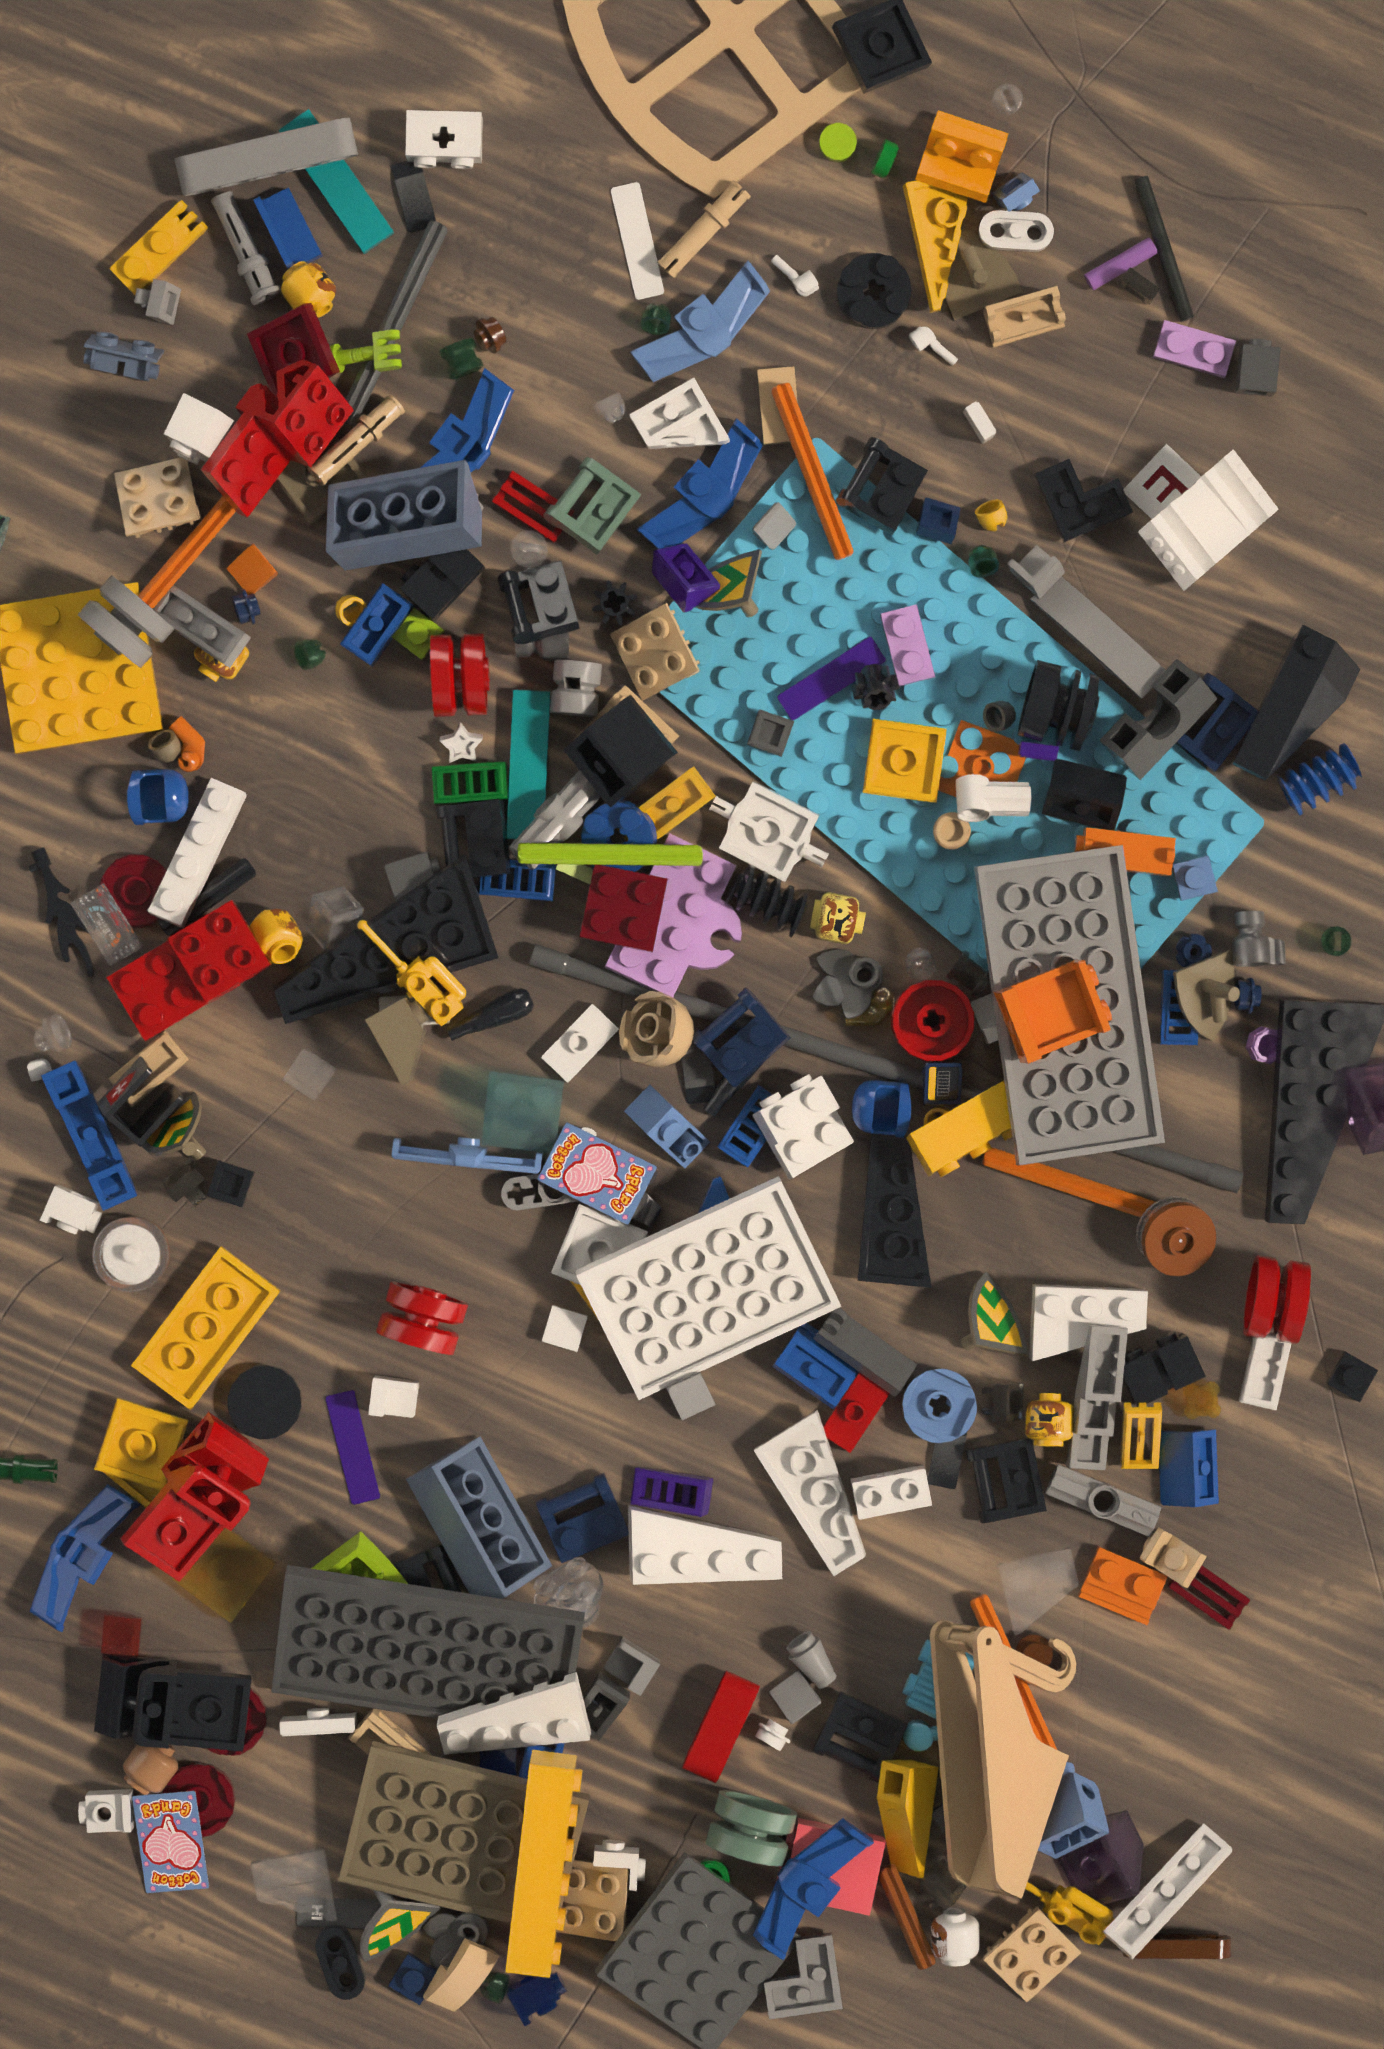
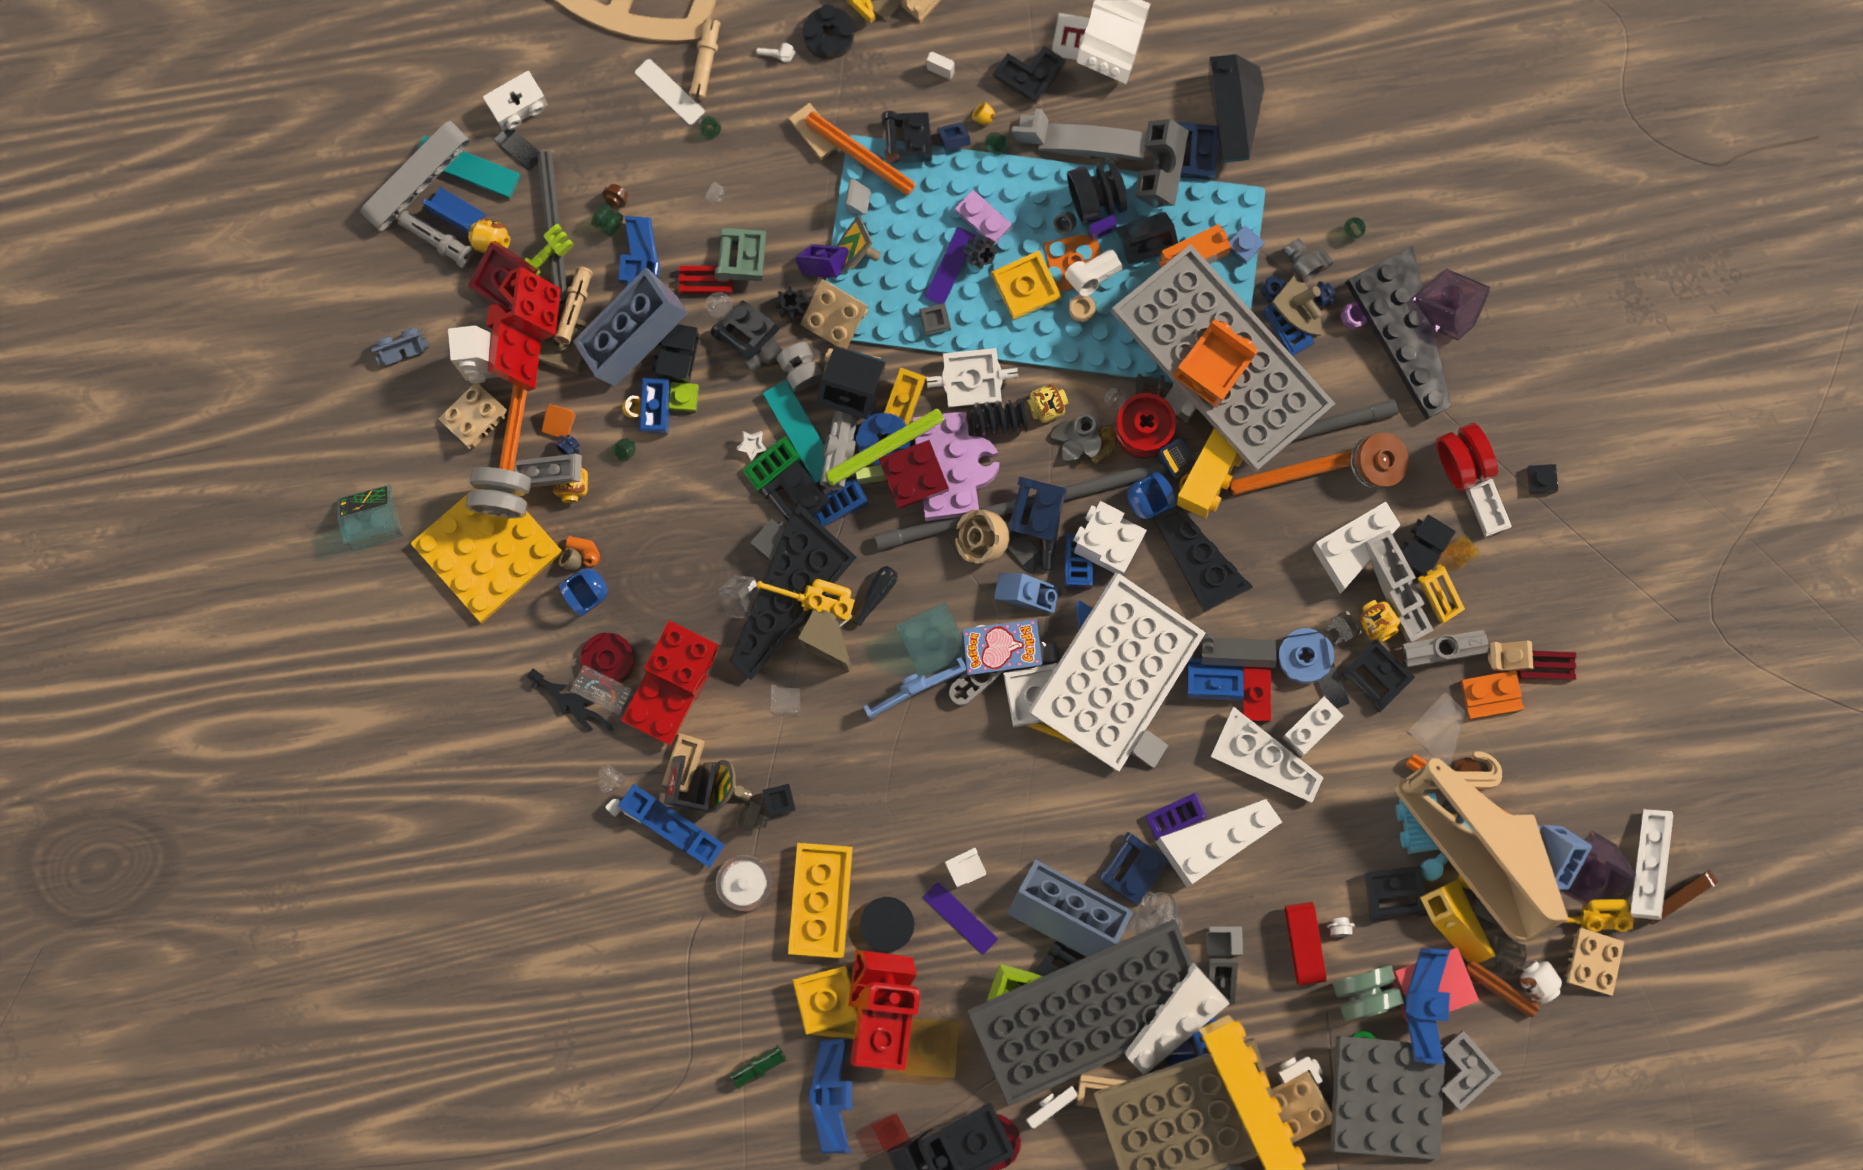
camera: 25 degrees left, 10 degrees down
(71, 1210) = (689, 880): white brick -> none
(158, 248) = (383, 272): yellow hinge -> none
(160, 301) = (402, 299): light grey tile -> none
(197, 853) = (630, 610): white plate -> none
(215, 892) = (653, 633): black axle -> none
(277, 935) = (712, 626): yellow head -> none
(421, 1321) = (950, 799): red wheel -> none
(459, 675) = (725, 399): red wheel -> none
(564, 1328) = (1044, 757): white tile -> none
(580, 1043) = (940, 577): white plate -> none
(679, 420) = (761, 174): white wing -> none
(705, 327) = (741, 114): medium blue plate -> none
(705, 491) = (803, 206): blue plate -> none
(795, 1696) = (1338, 895): light grey slope -> none
(811, 1659) = (1333, 864): light grey cone -> none
(923, 337) = (876, 38): white hand -> none
(993, 1320) = (1303, 583): shield -> none
(1188, 1468) = (1483, 597): blue panel -> none
(1321, 779) = (1279, 140): blue piece -> none

